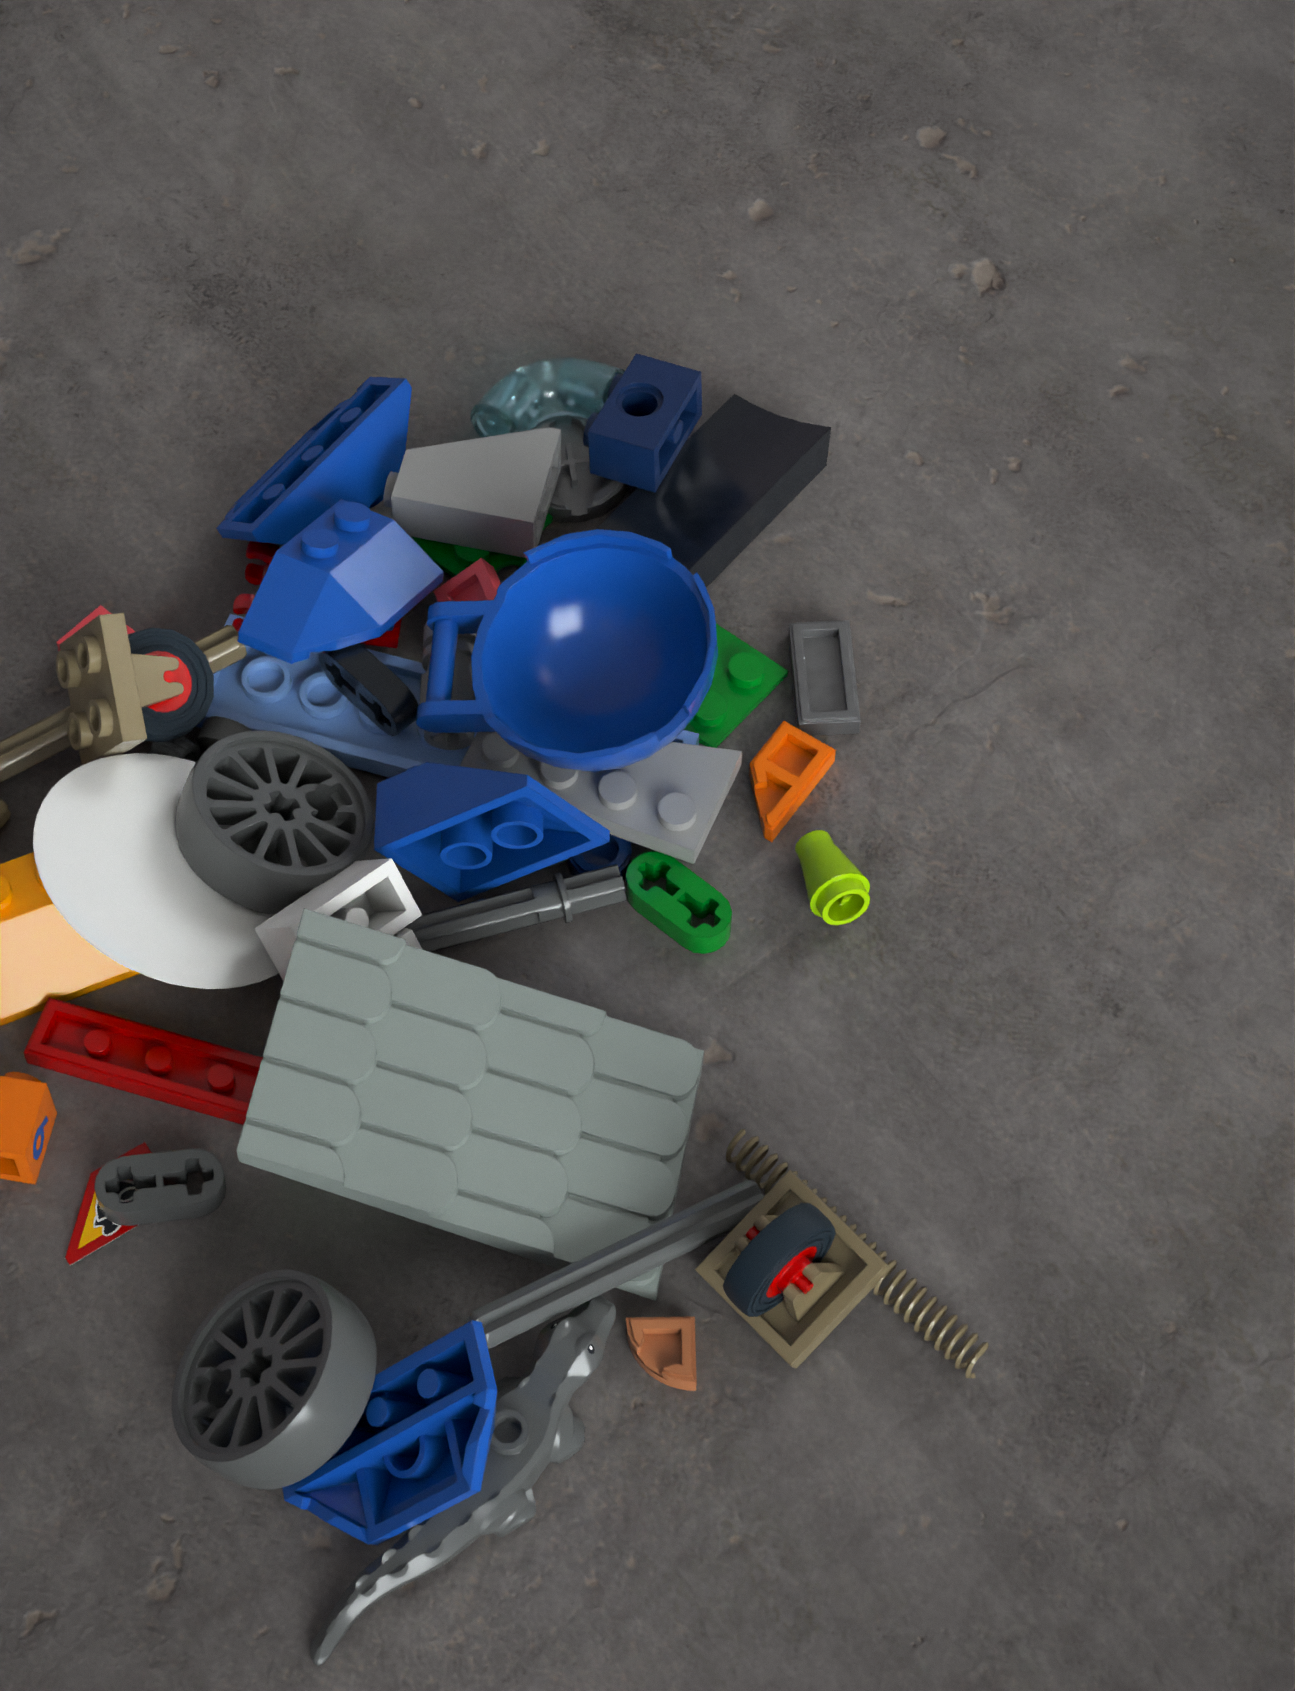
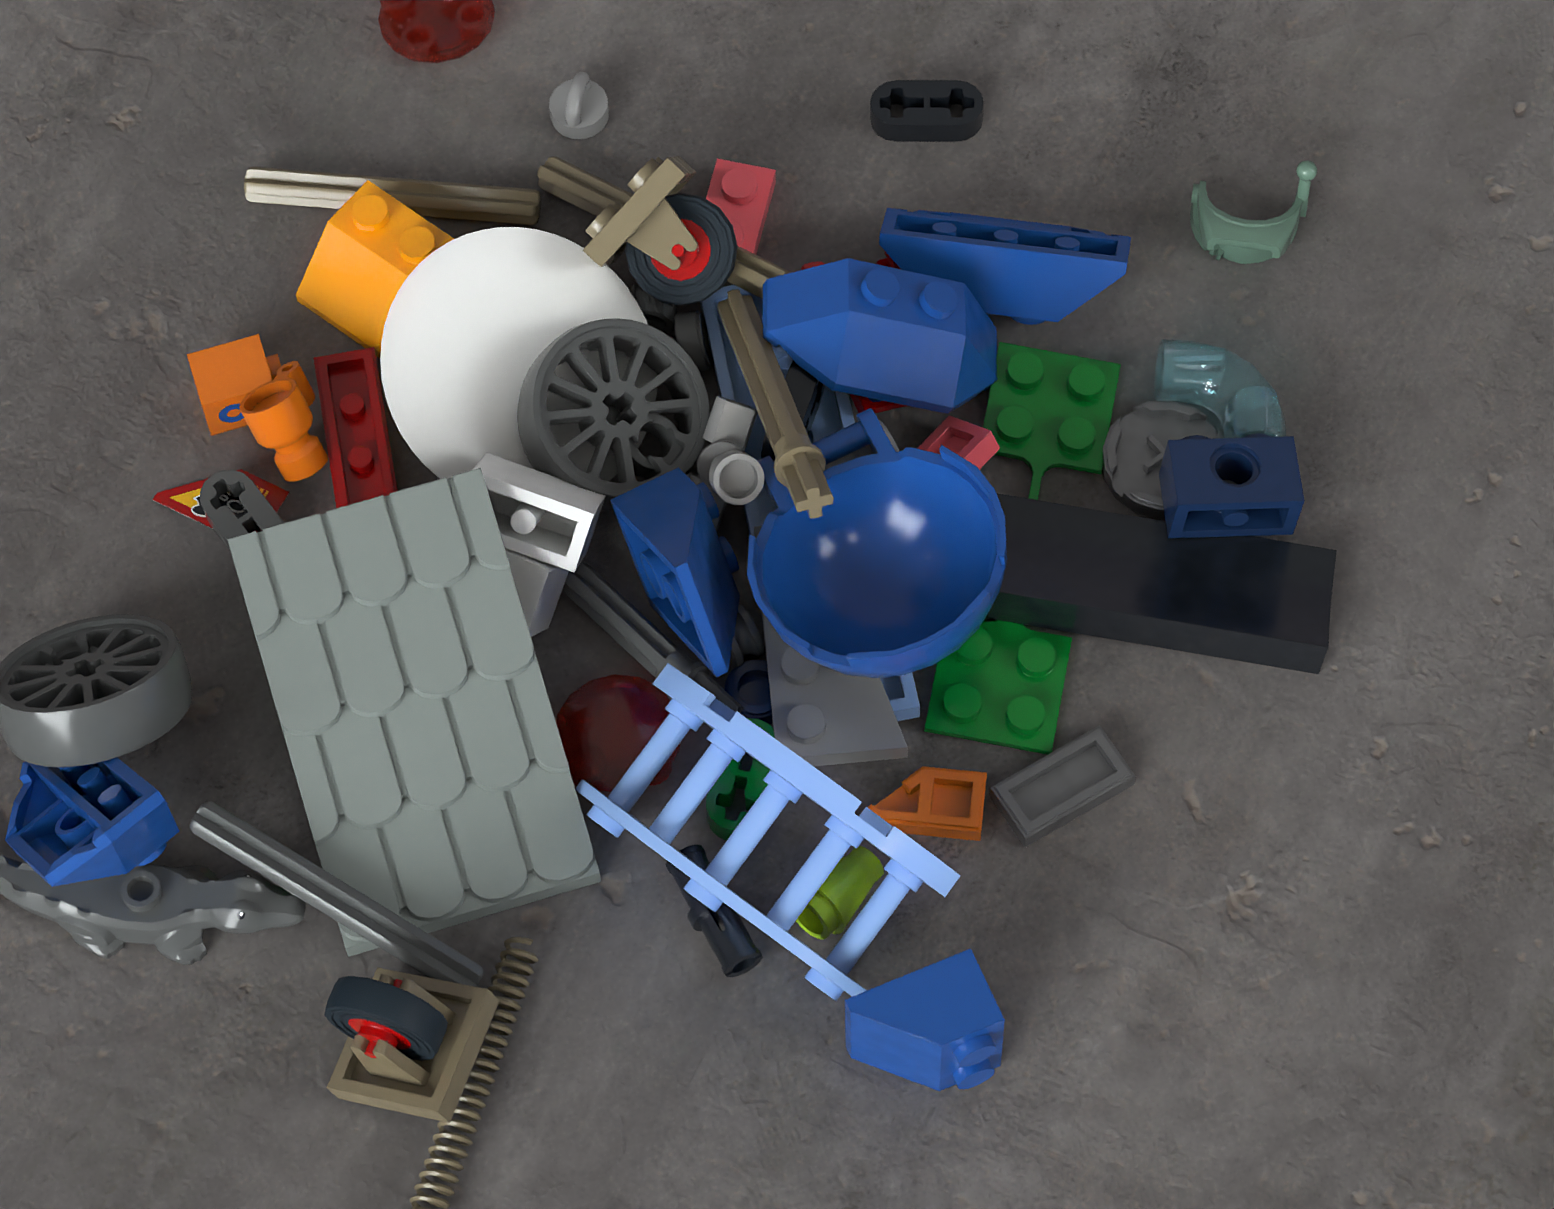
camera: 65 degrees right, 5 degrees up
(90, 1094) = (281, 421): none -> orange piece
(114, 469) = (926, 110): none -> black beam
(406, 323) = (1244, 239): none -> sand green helmet
(427, 734) = (724, 464): none -> light grey bar
(445, 671) = (797, 461): none -> dark tan axle
(478, 490) = (1066, 393): light grey slope -> none
(579, 964) = (608, 727): none -> clear red dish
(665, 1348) = (301, 984): nougat tile -> none
(745, 827) = (786, 781): none -> light blue fence
(793, 977) = (733, 945): none -> black pin
(1013, 847) = (929, 1025): none -> blue slope

